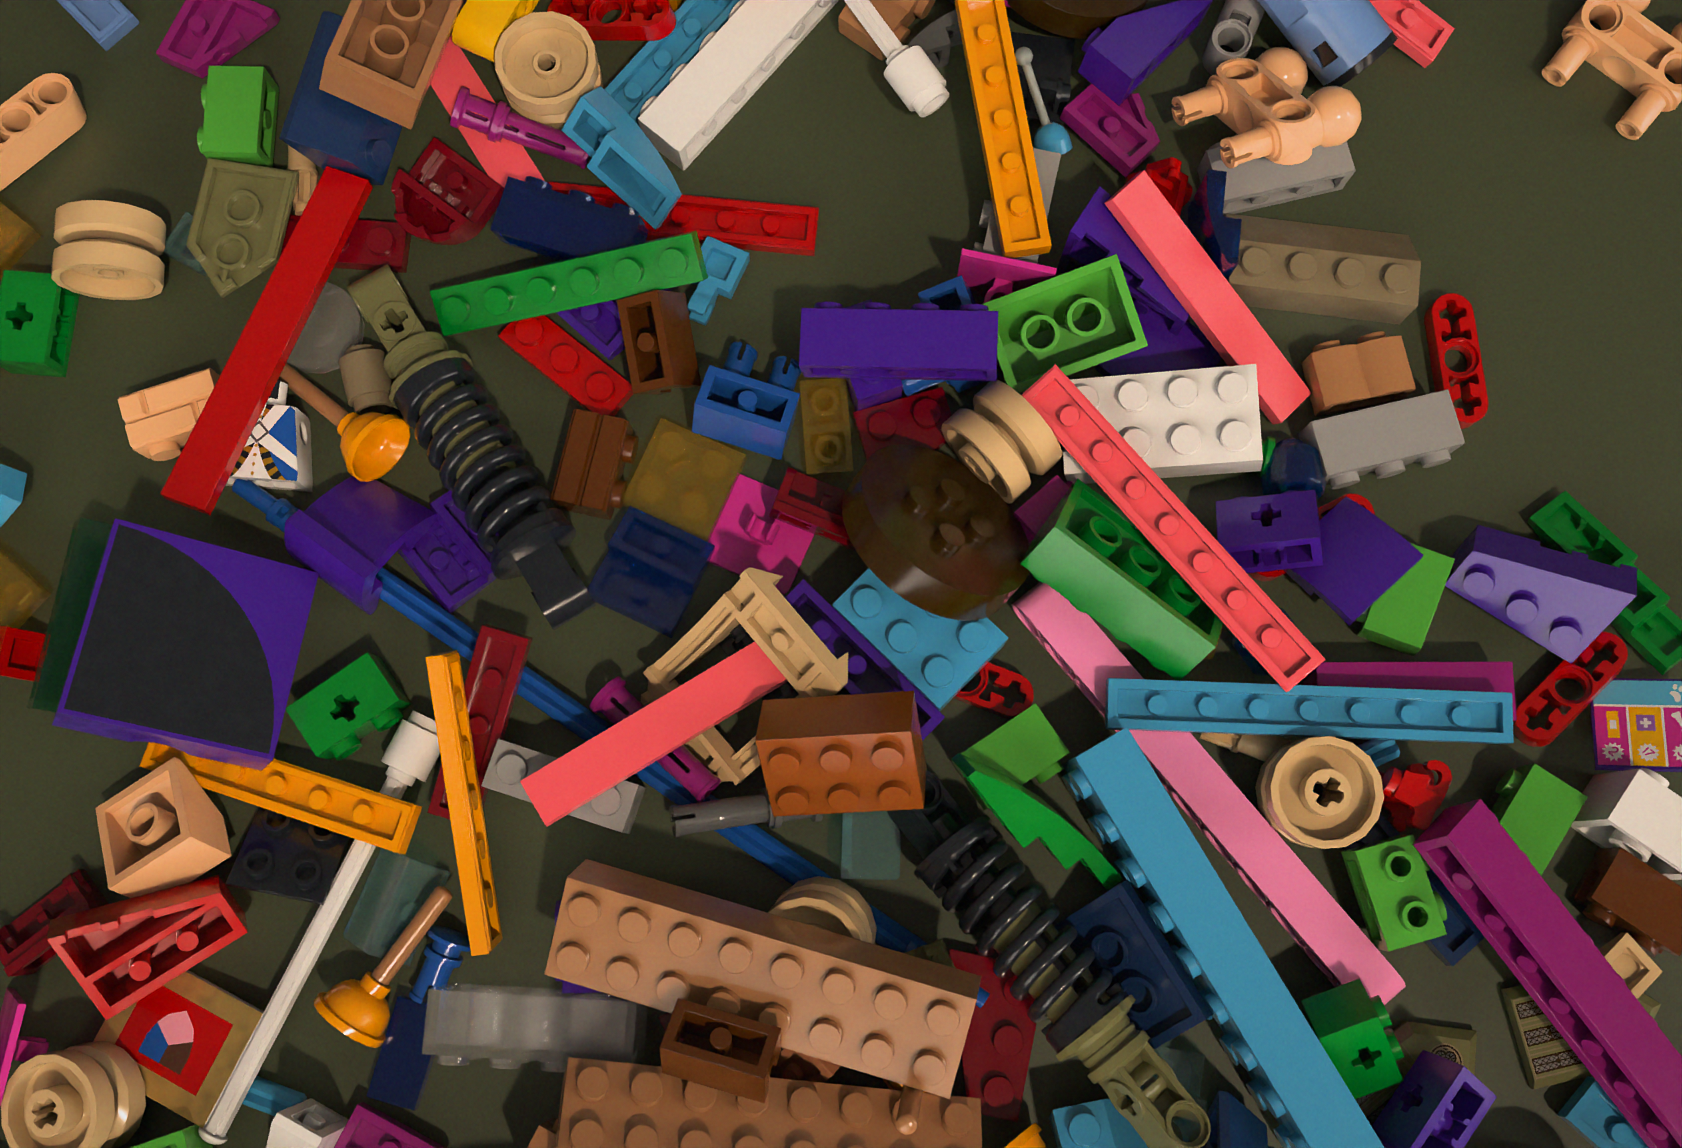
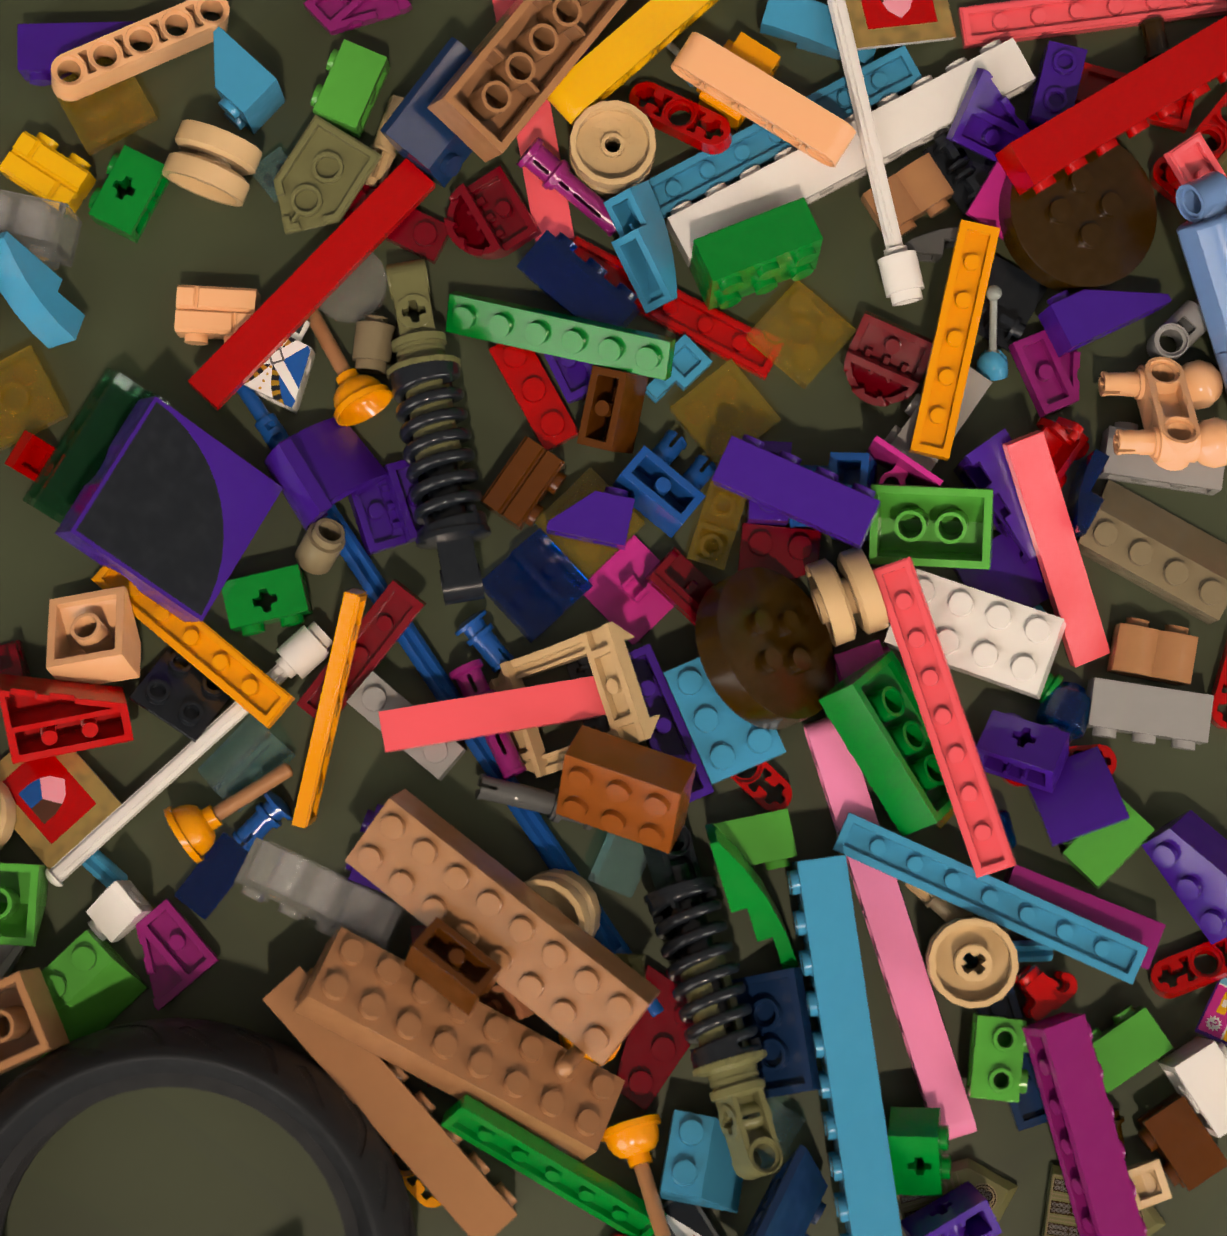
camera: 20 degrees right, 5 degrees up
(116, 154) = (245, 87): none -> dark azure slope
(388, 622) = (320, 546): none -> dark tan brick
(615, 653) = (484, 640): none -> blue pin
(687, 468) = (596, 519): none -> dark purple slope
(749, 116) = (756, 254): none -> green brick
(772, 300) = (722, 408): none -> clear yellow plate
(833, 190) = (800, 334): none -> clear yellow plate
(936, 181) = (885, 361): none -> dark red slope

